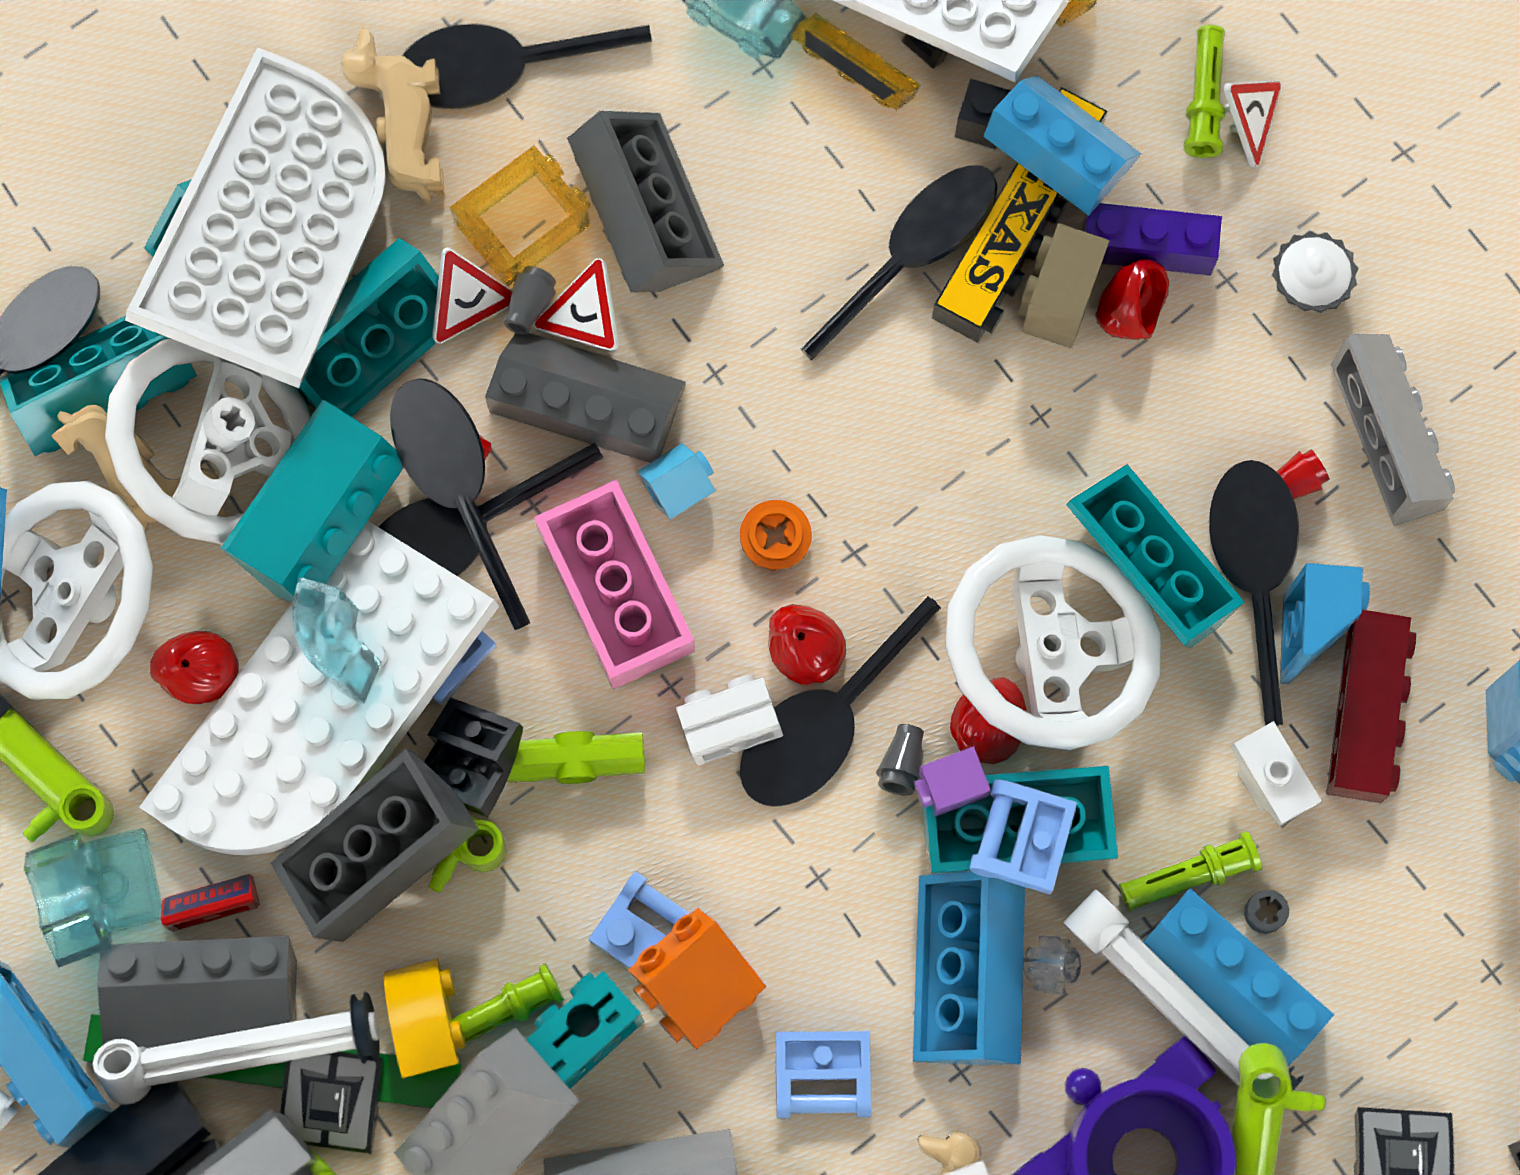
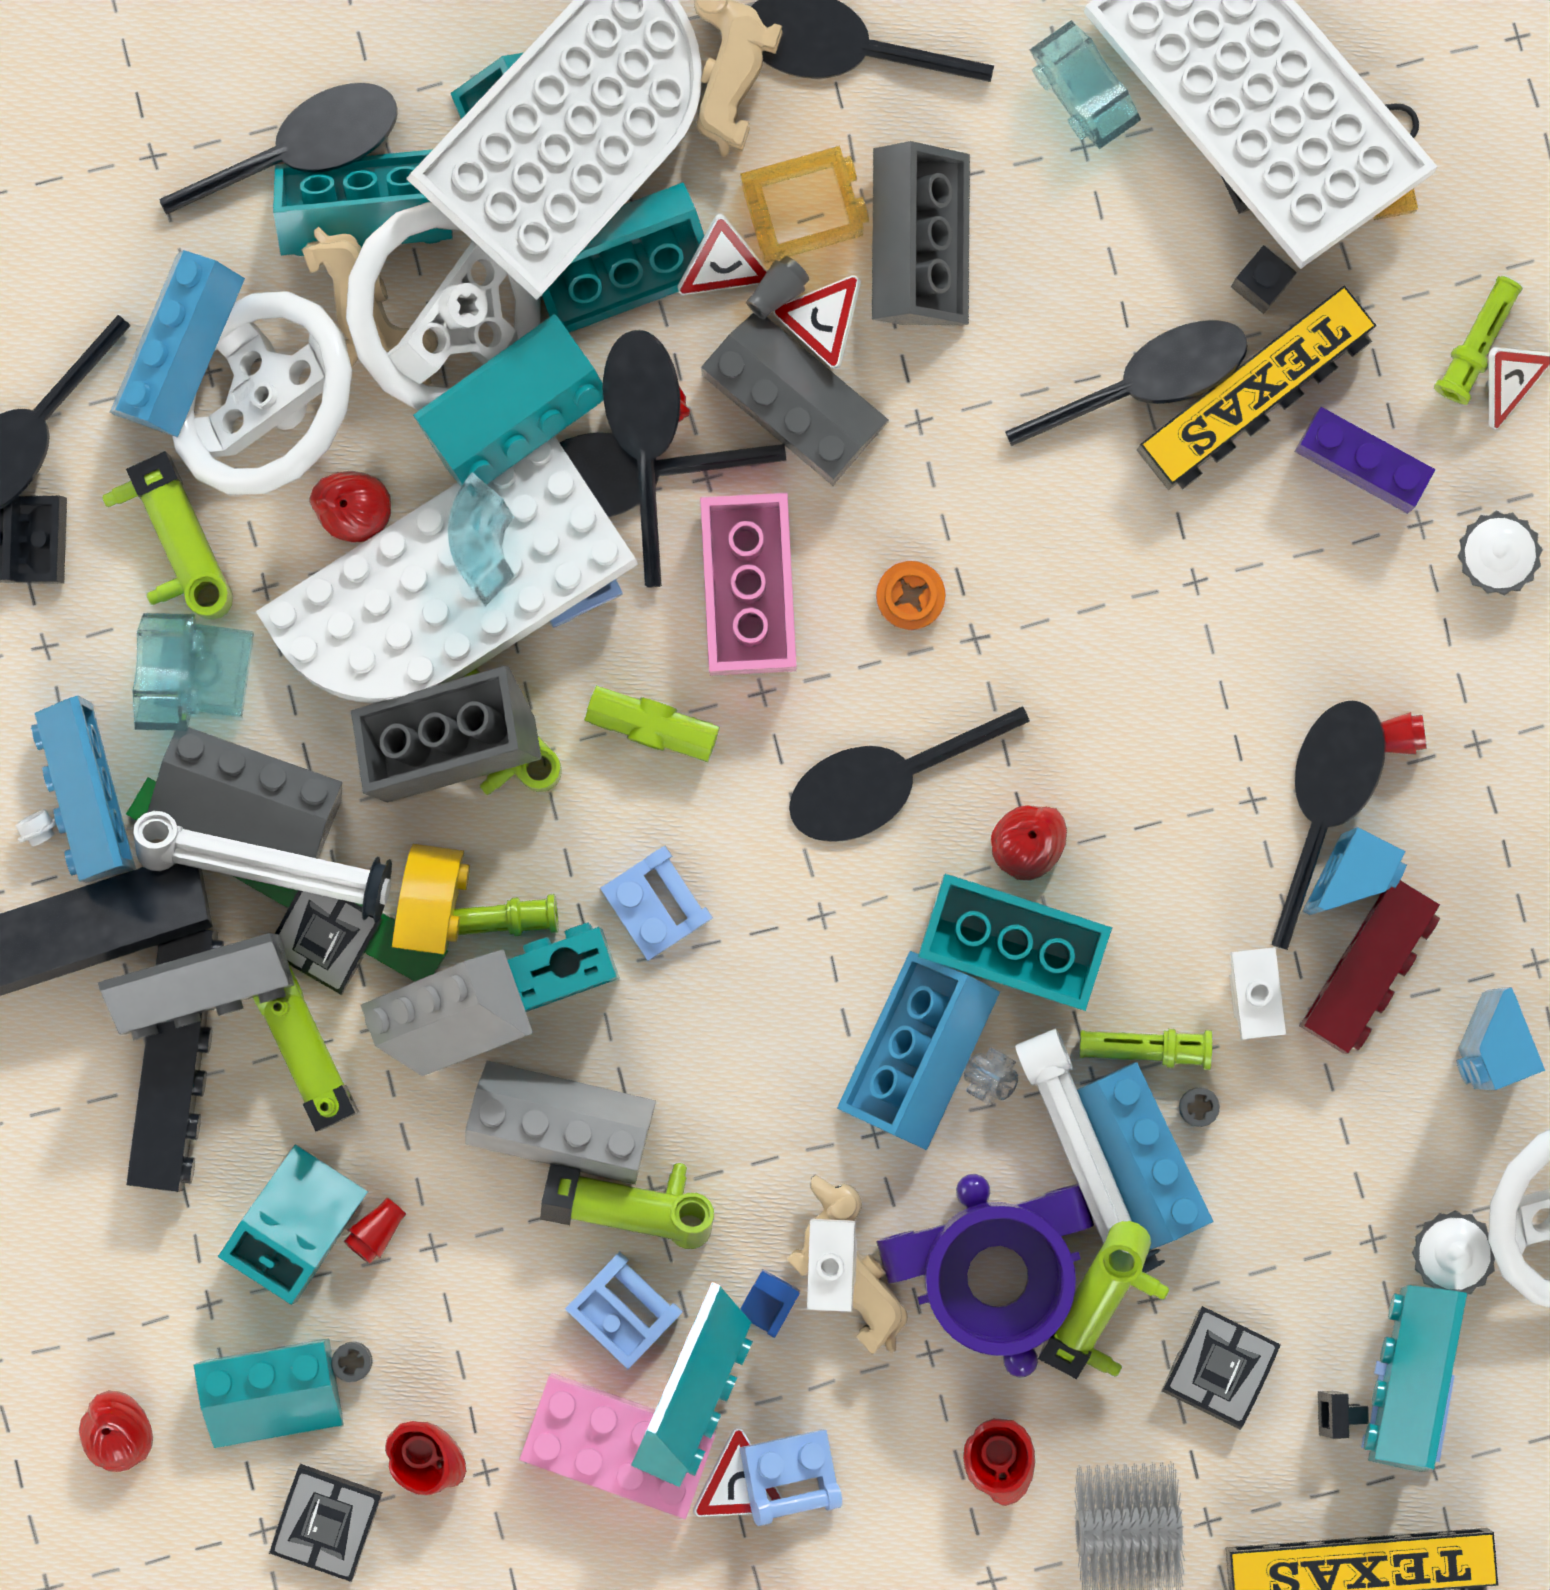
camera: 25 degrees right, 10 degrees up
(209, 903) = (285, 720): red slope -> none
(474, 753) = (563, 685): black slope -> none
(677, 480) = (843, 511): medium azure brick -> none
(695, 979) = (676, 964): orange brick -> none
(729, 719) = (800, 746): white brick -> none
(814, 653) = (904, 715): red hair -> none
(823, 1057) = (760, 1074): light blue plate -> none
(855, 62) = (1168, 180): clear yellow plate -> none
(902, 761) = (936, 846): dark grey cone -> none
(952, 782) = (967, 888): medium lavender brick -> none
(1038, 841) = (1020, 970): light blue plate -> none
(1051, 643) = (1175, 820): white piece -> none
(1060, 143) = (1318, 342): dark azure slope -> none
(1062, 285) = (1260, 480): dark tan brick -> none
(1133, 300) = (1323, 512): red hair -> none
(1156, 555) = (1236, 757): teal slope -> none
(1392, 428) = (1504, 725): light grey slope -> none

